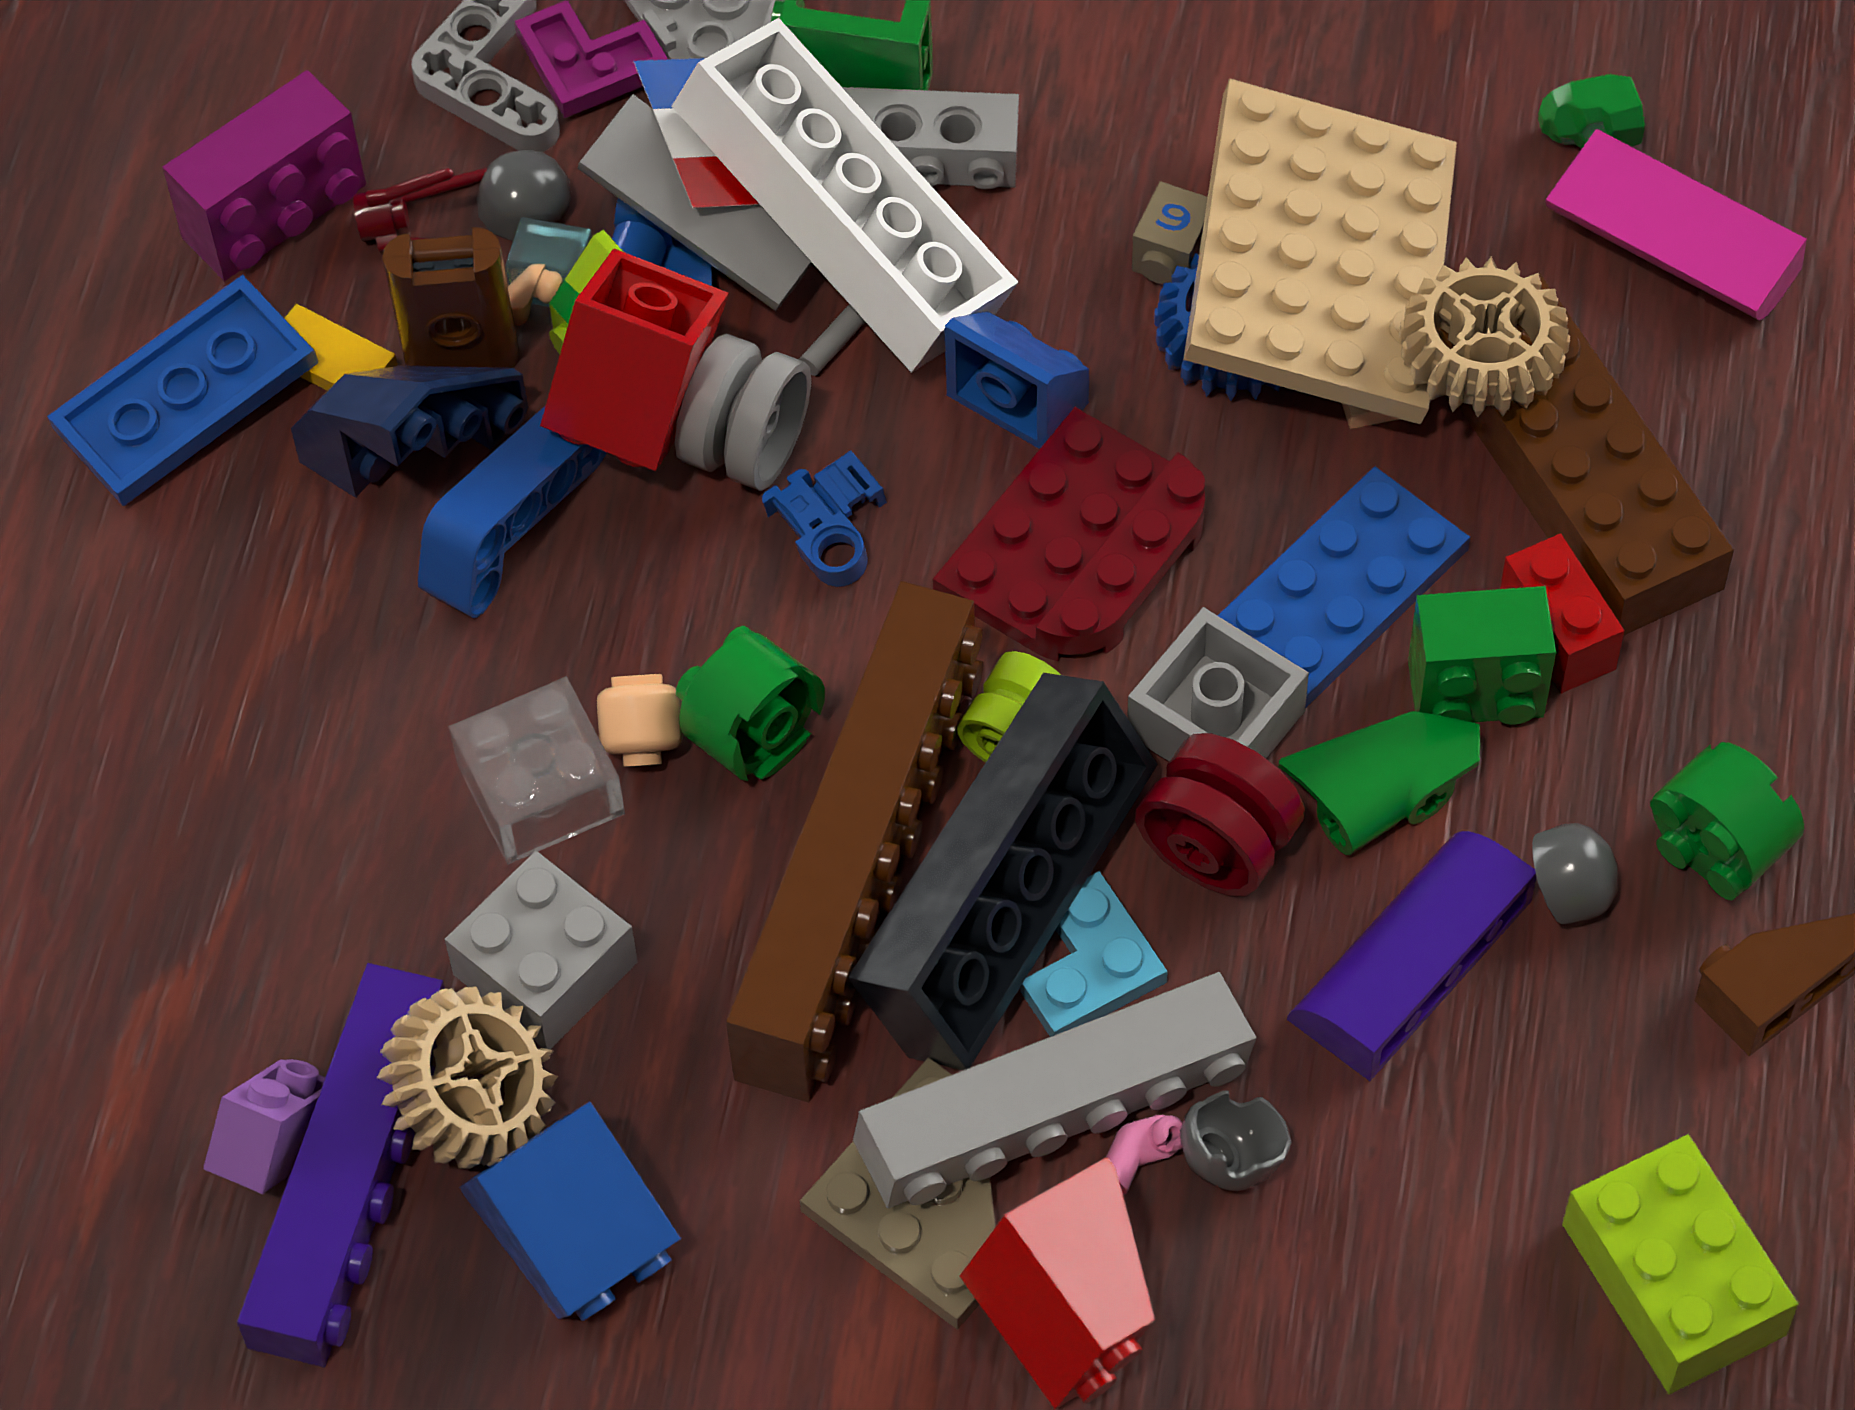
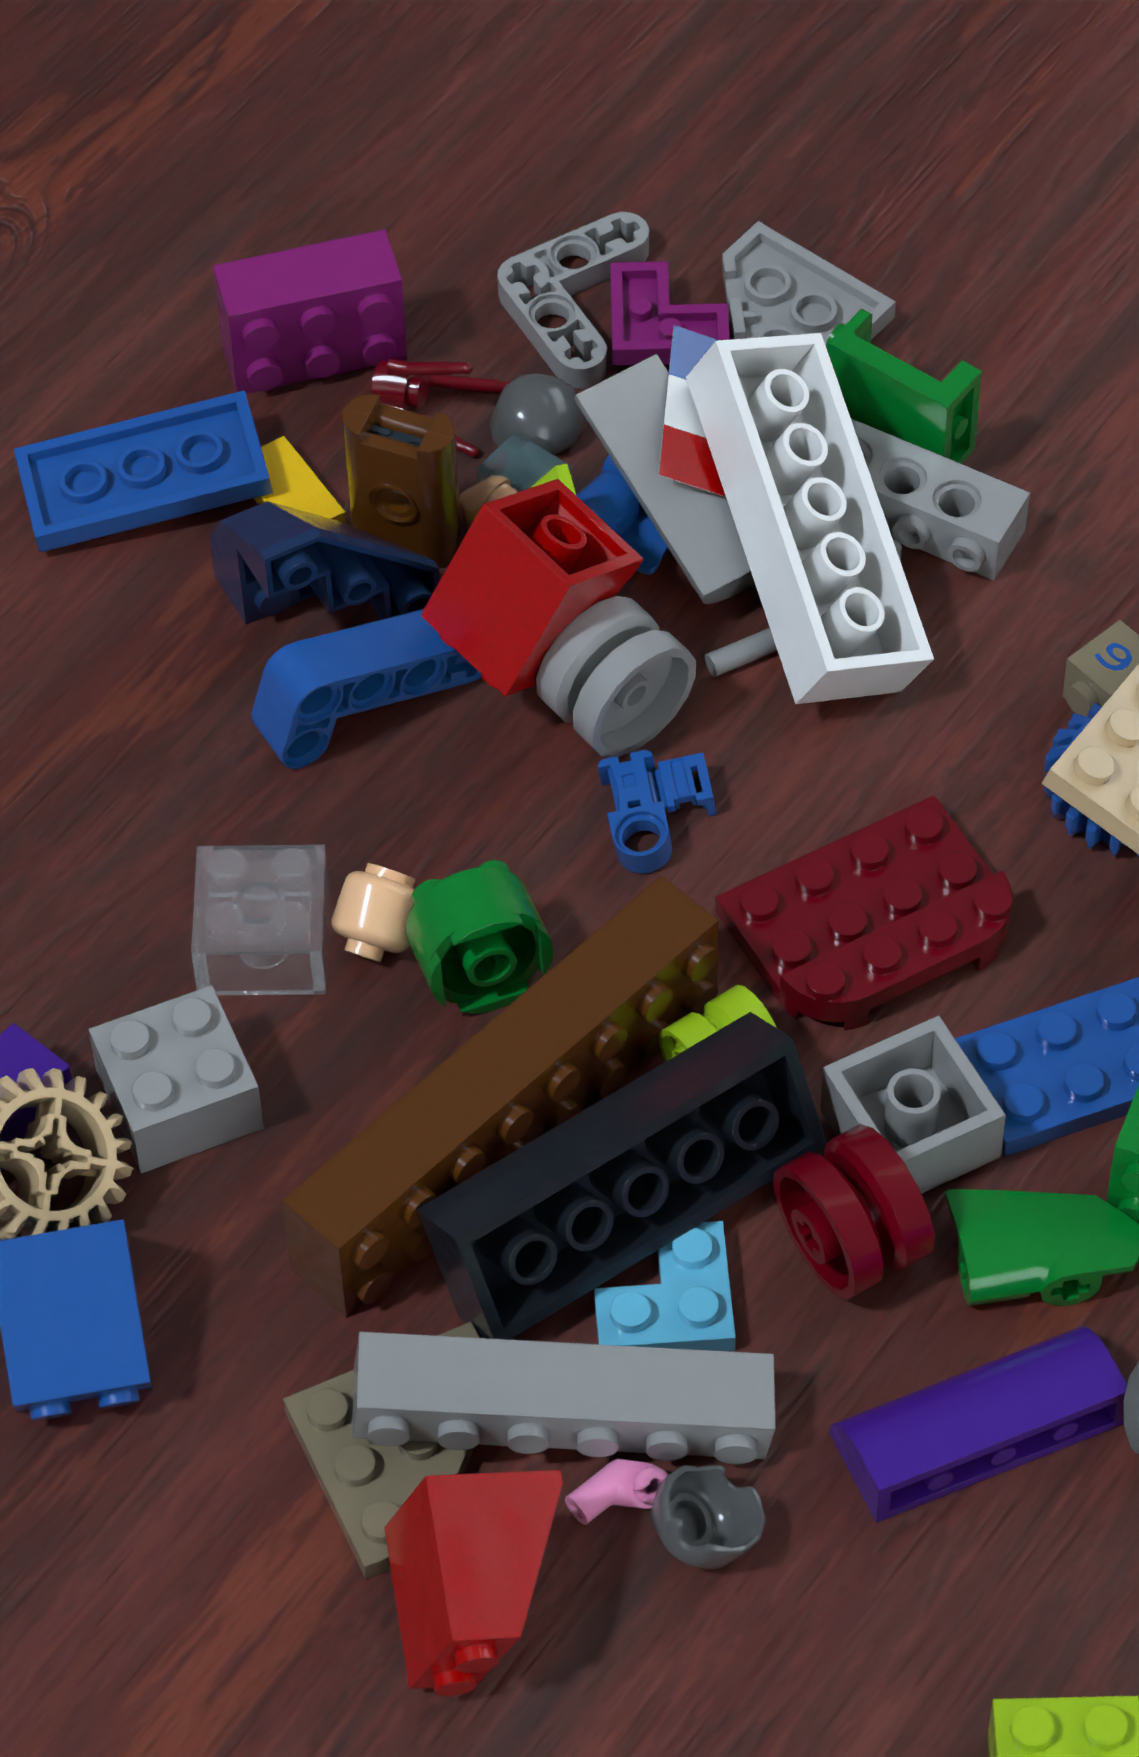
camera: 25 degrees right, 5 degrees down
(1012, 376) = (887, 740): blue slope -> none

